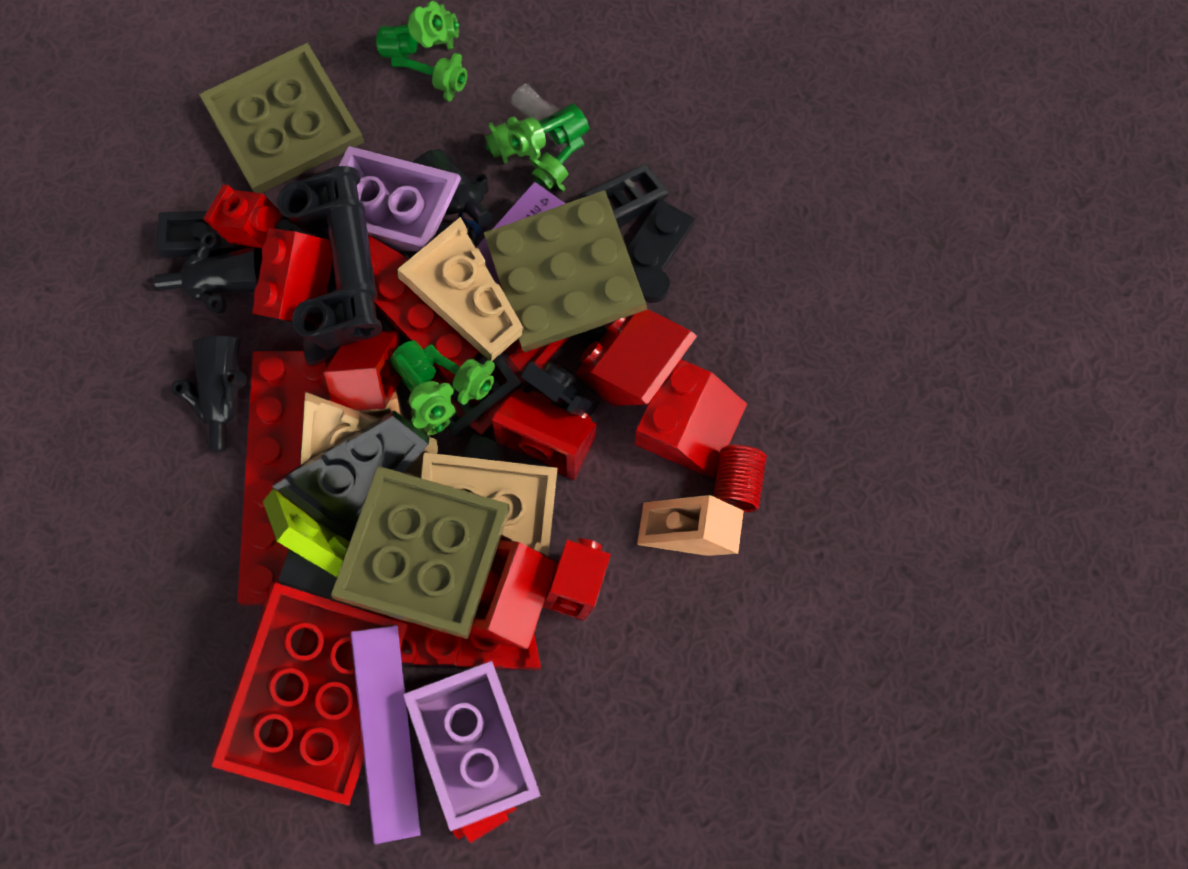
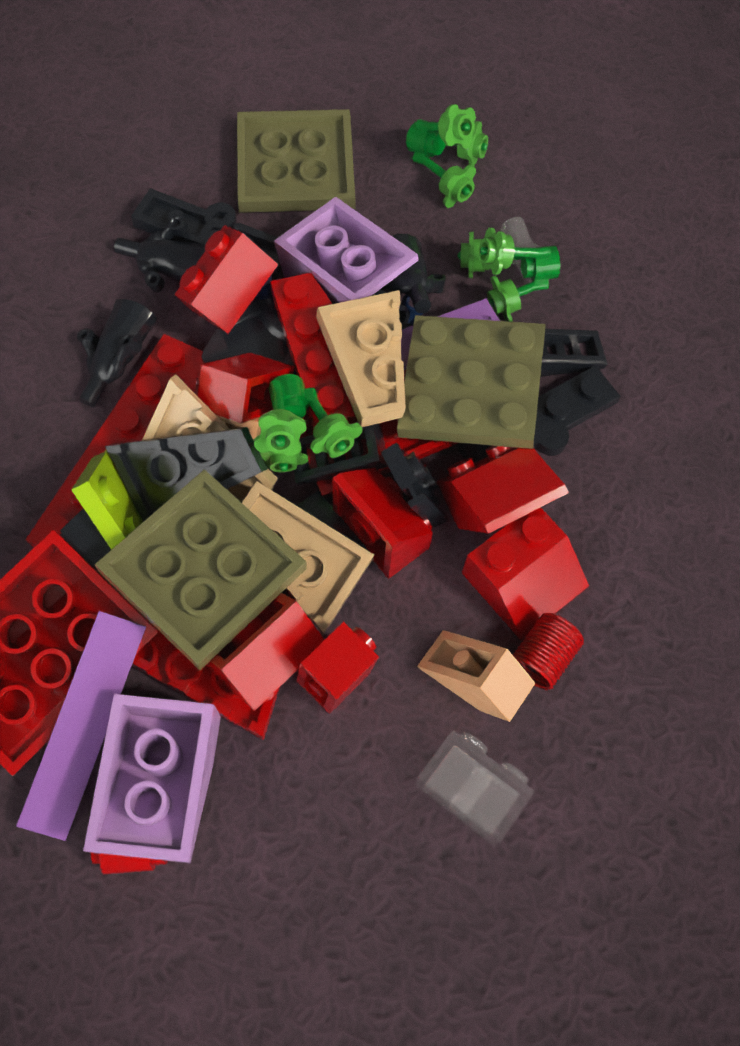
camera: 25 degrees right, 5 degrees down
(242, 216) = (210, 210): red brick -> none
(333, 203) = (278, 229): black piece -> none
(735, 620) = (475, 786): none -> clear brick

